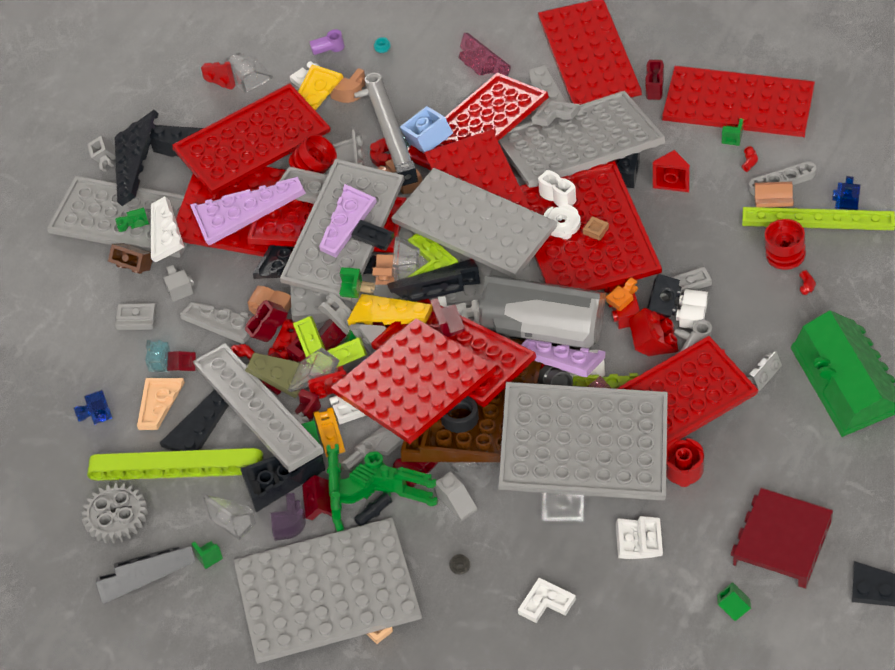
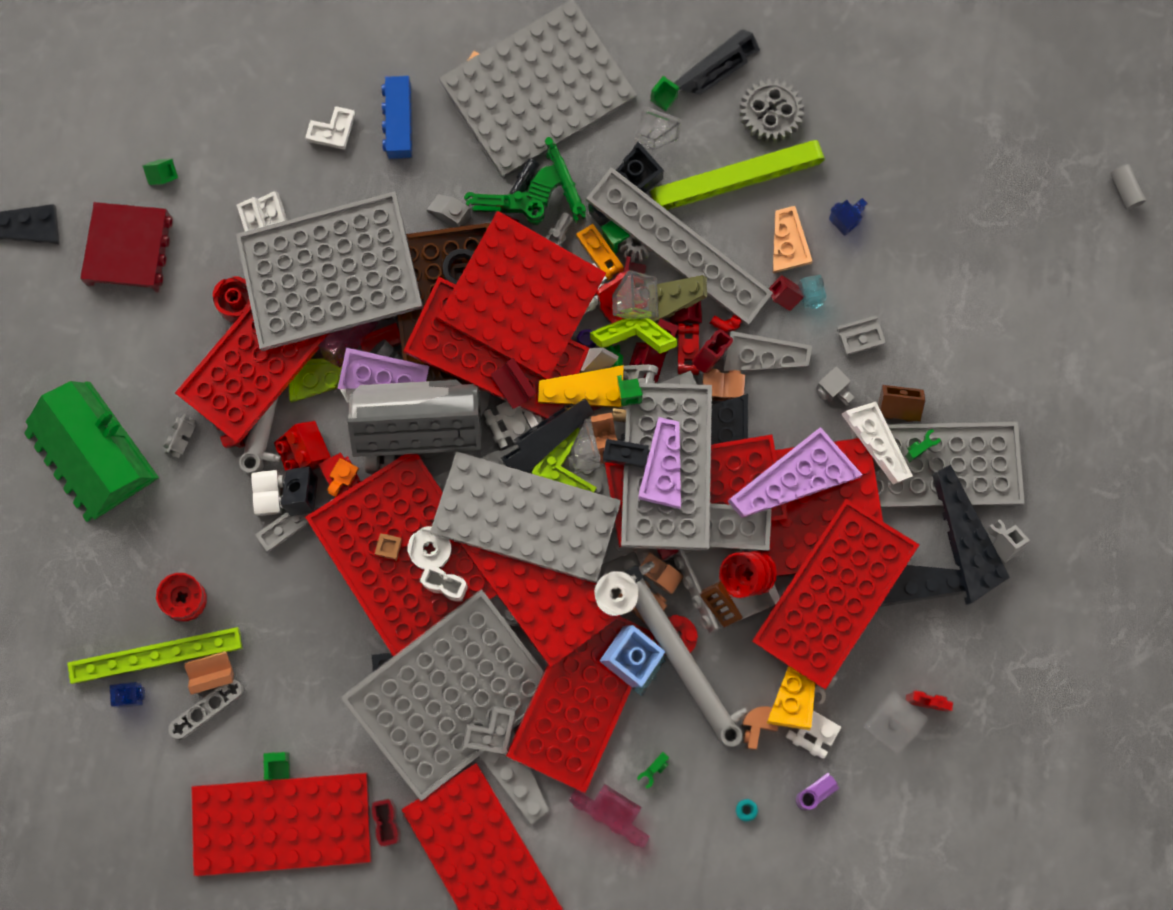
camera: 155 degrees right, 25 degrees up
(197, 426) = (737, 223): black wing -> none
(290, 522) = (598, 143): clear purple brick -> none
(316, 497) = (583, 175): dark red panel -> none
(343, 144) = (719, 588): none -> reddish brown slope
(420, 155) = (628, 589): none -> white plate
(438, 77) = (658, 765): none -> green plate
(459, 559) = (423, 141): clear smoke plate -> none
(475, 594) = (398, 117): none -> blue brick
(671, 173) = (330, 672): red slope -> none
(751, 158) = (247, 732): red arm -> none
(809, 283) = (151, 562): red arm -> none

